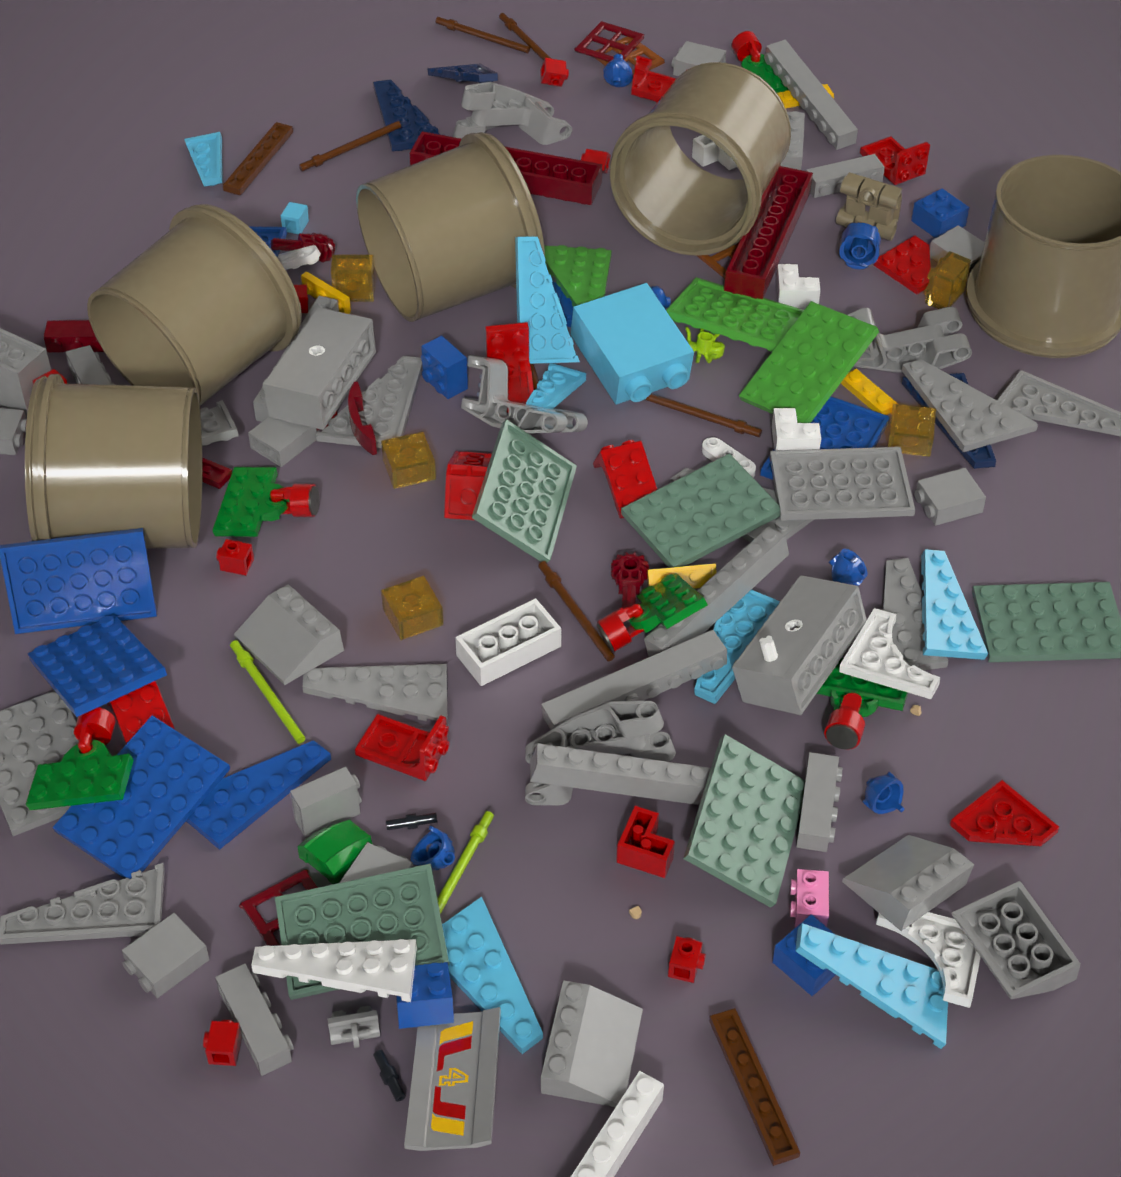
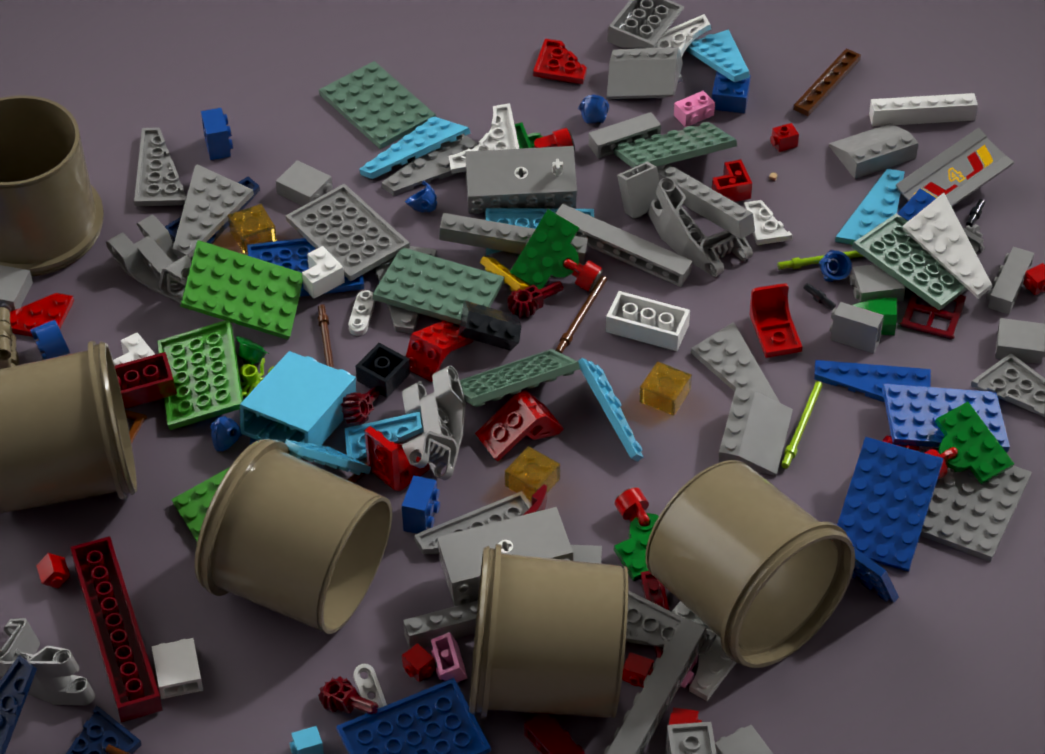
camera: 125 degrees left, 0 degrees up
(317, 288) = (391, 652): yellow plate -> none
(354, 276) = (363, 633): clear yellow brick -> none
(440, 547) = (611, 405): none -> medium azure wing
(562, 842) = (766, 226): none -> white wing
(596, 384) = (358, 406): none -> dark red gear
(609, 511) = (489, 326): none -> black slope
(628, 421) = (383, 369): none -> black slope
(698, 734) = (638, 188): none -> light grey brick
(742, 358) = (250, 351): none -> green piece
(947, 280) = (61, 271): clear yellow brick -> none
(1078, 457) = (216, 133): none -> blue brick

